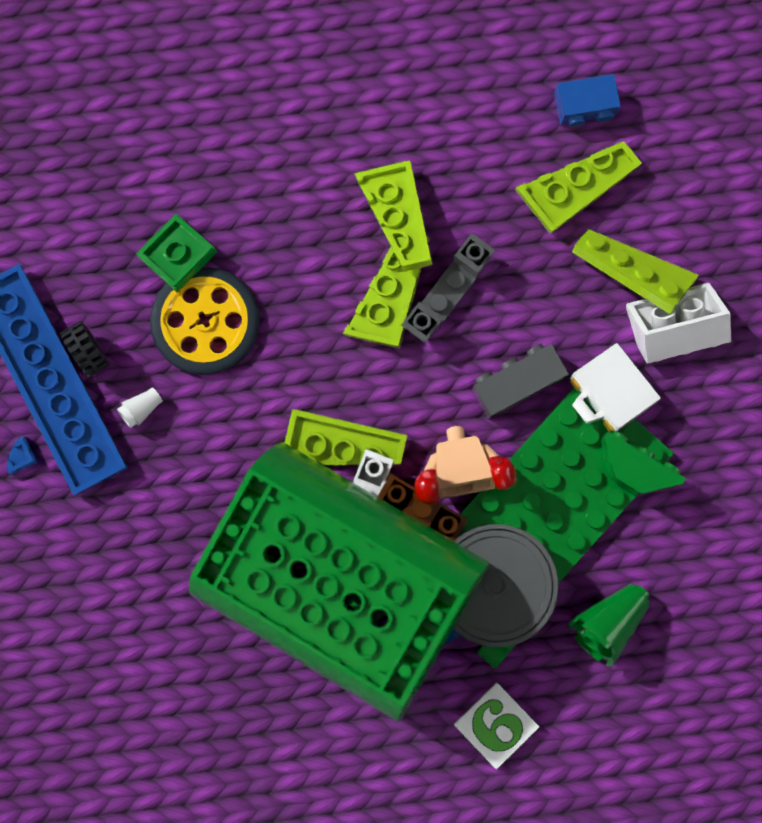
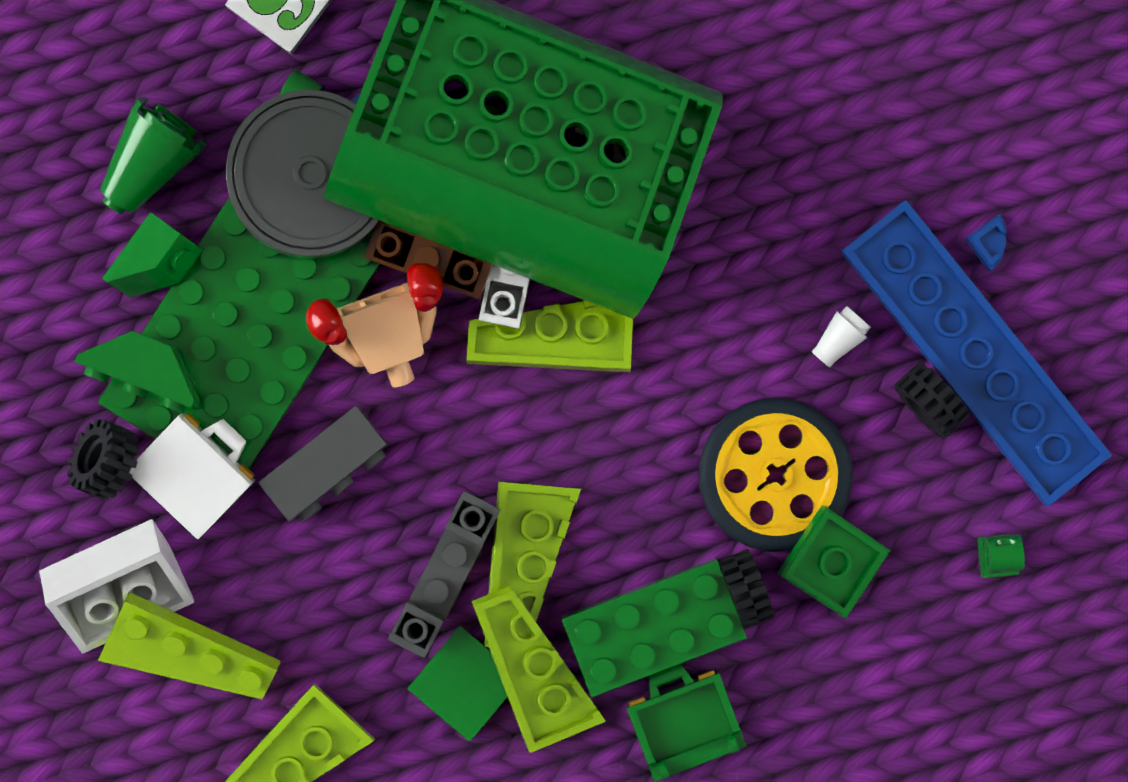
camera: 170 degrees right, 5 degrees up
(59, 237) = (1000, 555): none -> green leg
(240, 242) = (746, 588): none -> black tyre
(300, 163) = (685, 722): none -> green piece
(309, 229) = (653, 627): none -> green brick
(449, 216) = (461, 684): none -> green tile
(618, 547) = (152, 259): none -> green slope
(675, 409) = (103, 459): none -> black tyre

